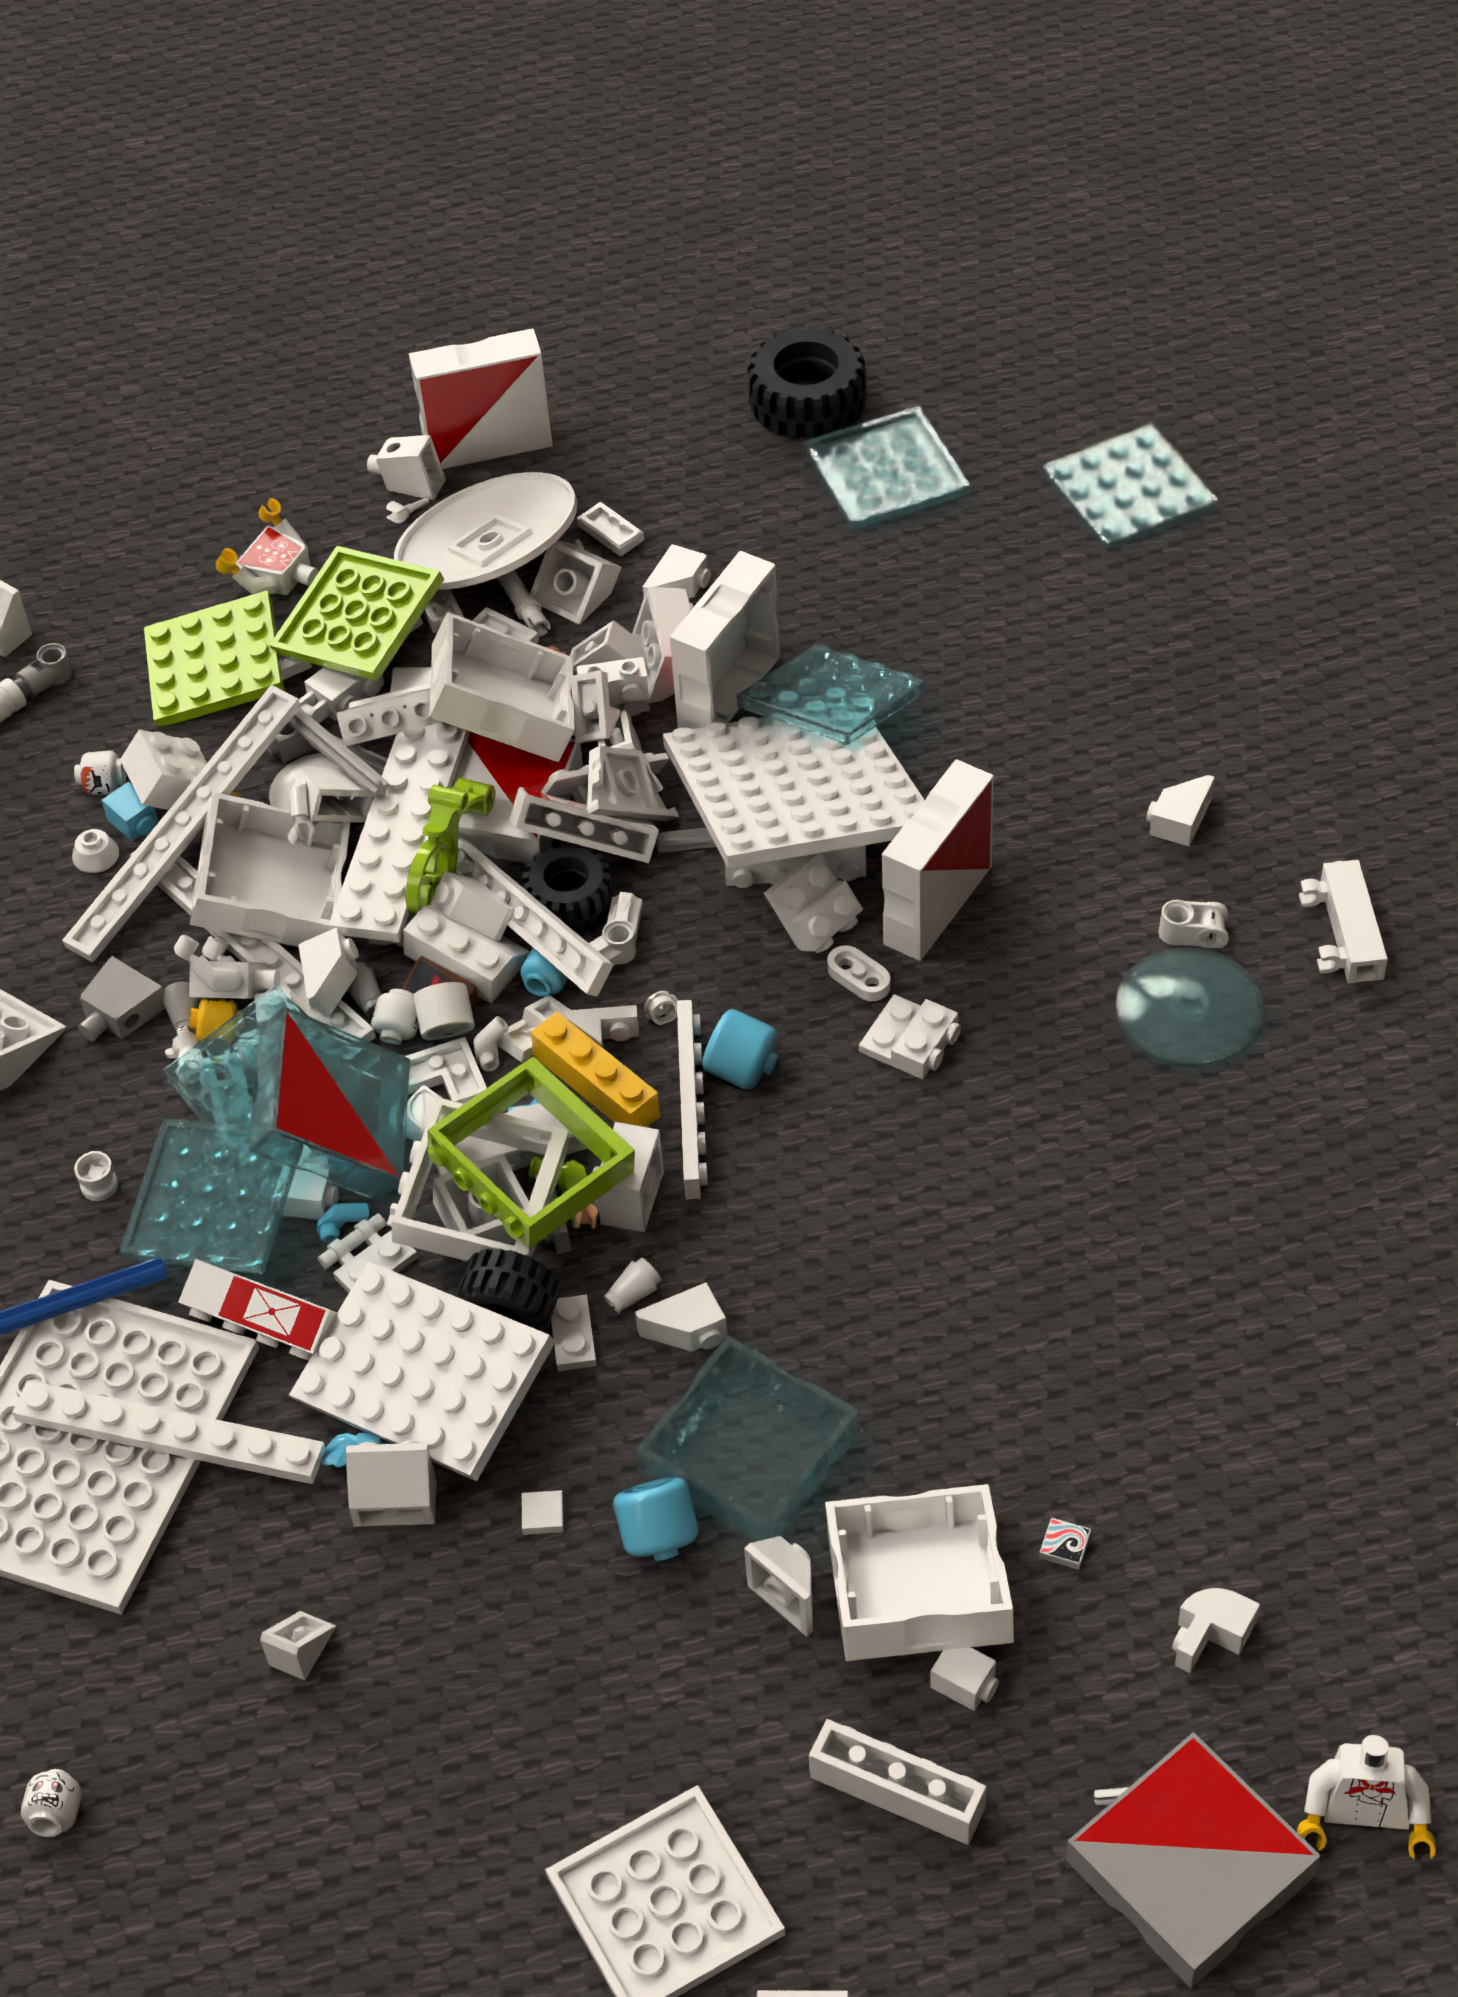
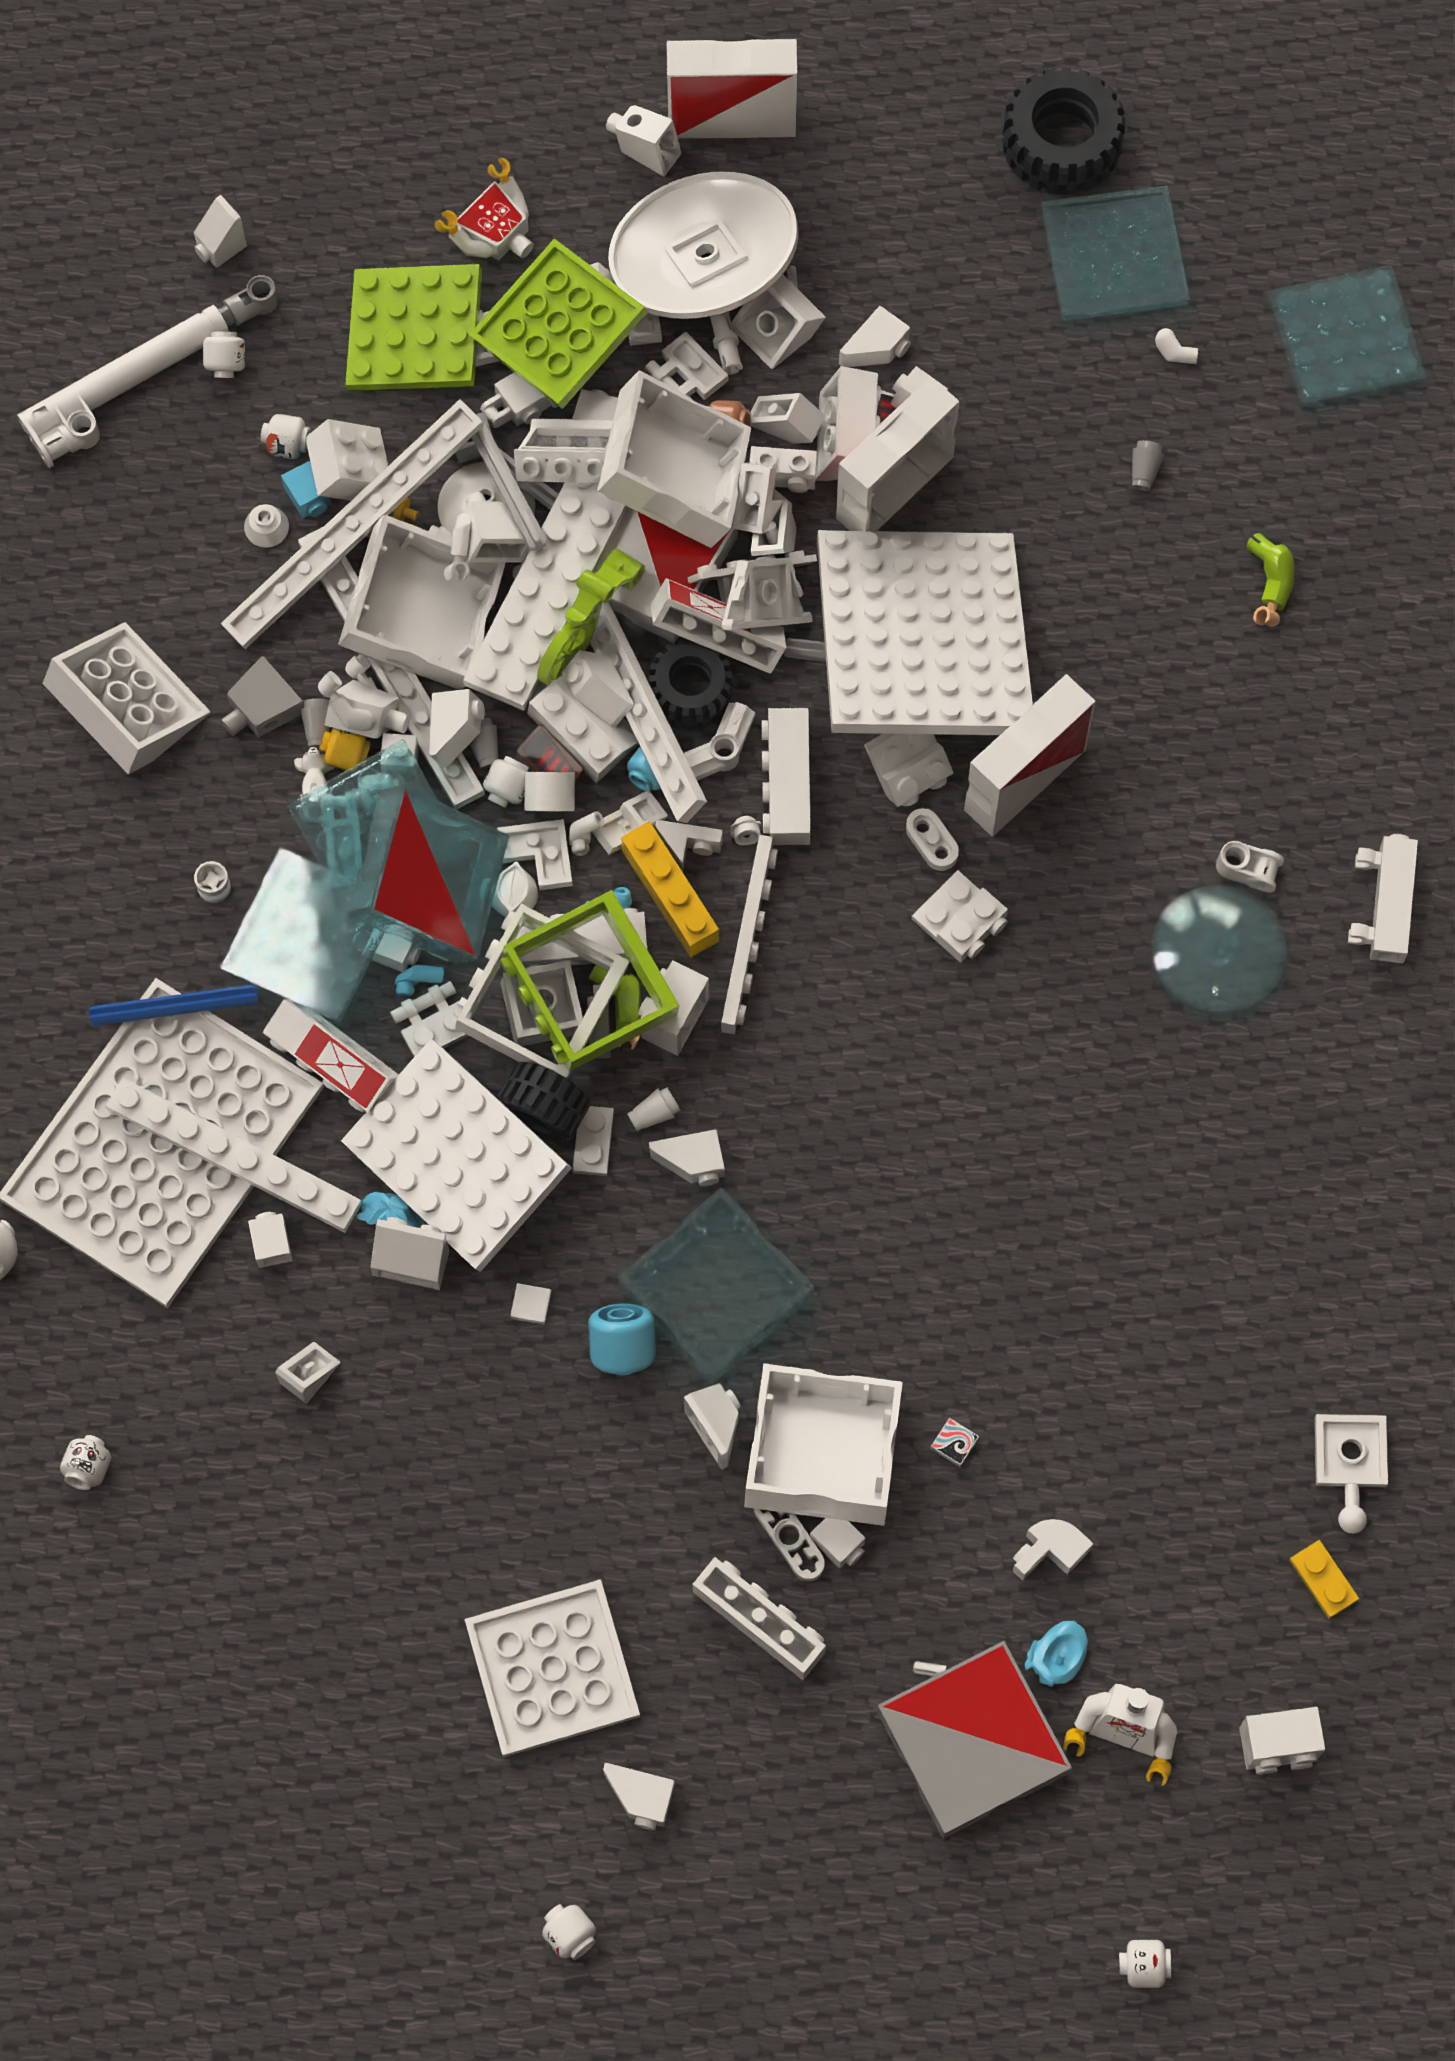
camera: 10 degrees right, 20 degrees up
(23, 716) = (224, 354): none -> white head
(228, 1512) = (270, 1239): none -> white brick
(401, 512) = (626, 187): white hand -> none
(610, 529) = (827, 261): white plate -> none
(692, 947) = (788, 776): none -> white brick
(741, 1050) = (805, 898): medium azure head -> none
(831, 693) = (986, 527): clear light blue plate -> none
(921, 1715) = (795, 1562): none -> white beam
(968, 530) = (1172, 350): none -> white arm
(971, 617) = (1145, 464): none -> light grey cone
(1135, 677) = (1280, 578): none -> lime arm
(1181, 810) = (1276, 737): white slope -> none
(1259, 1738) = (1058, 1653): none -> medium azure hat

